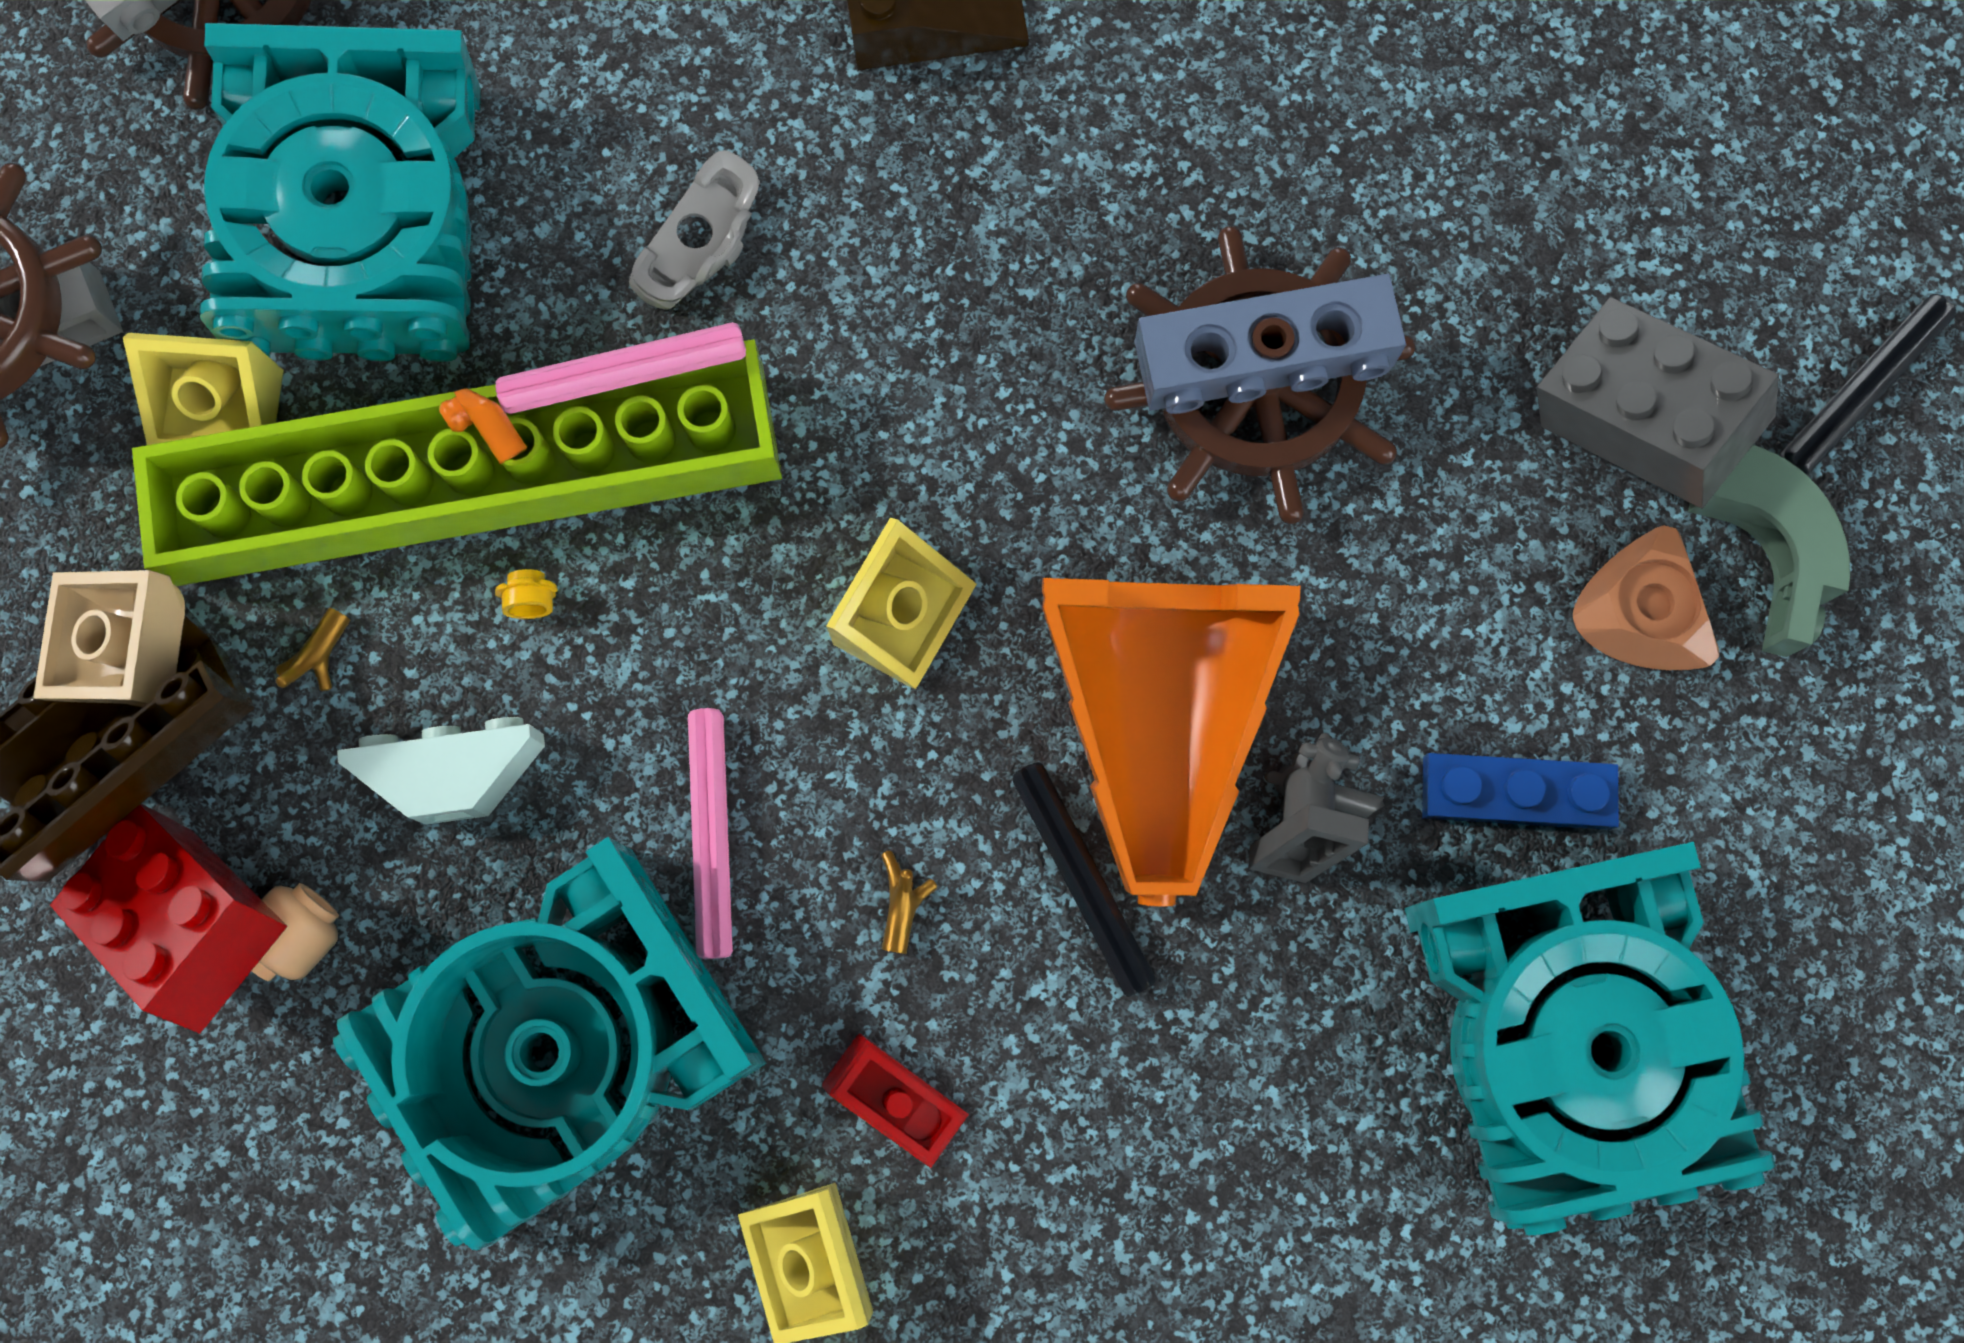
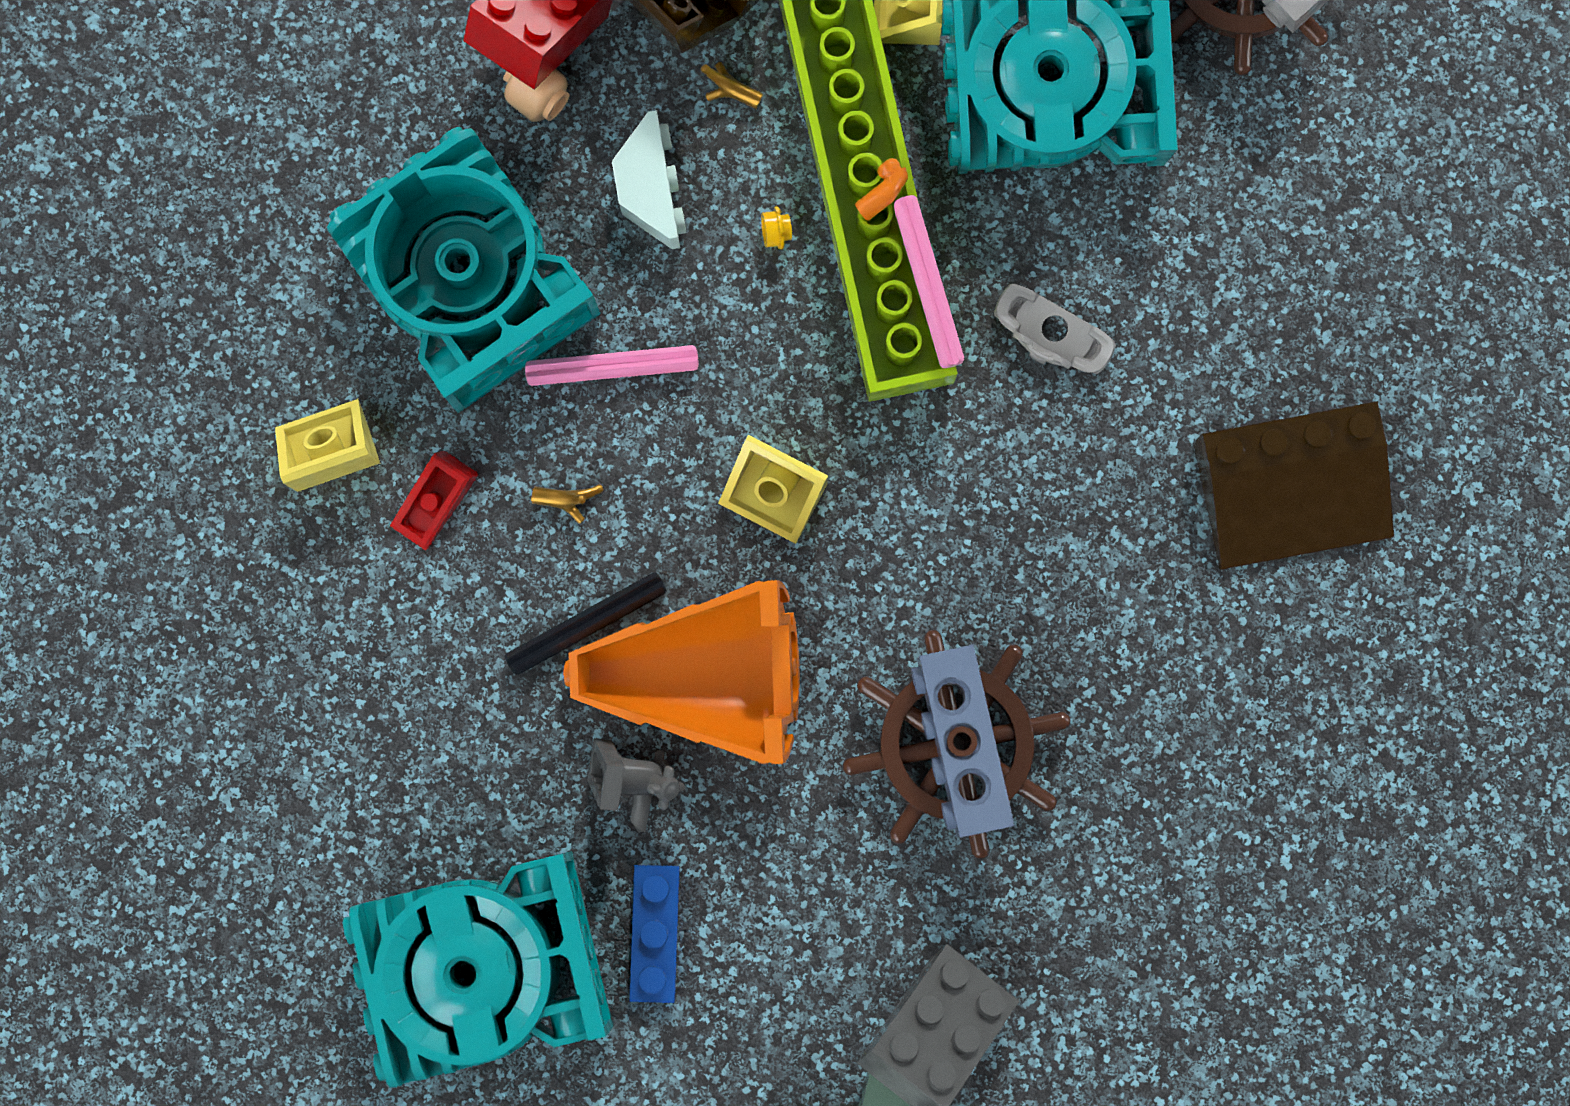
camera: 90 degrees right, 5 degrees up
(1648, 607) = (792, 1030): nougat hat -> none

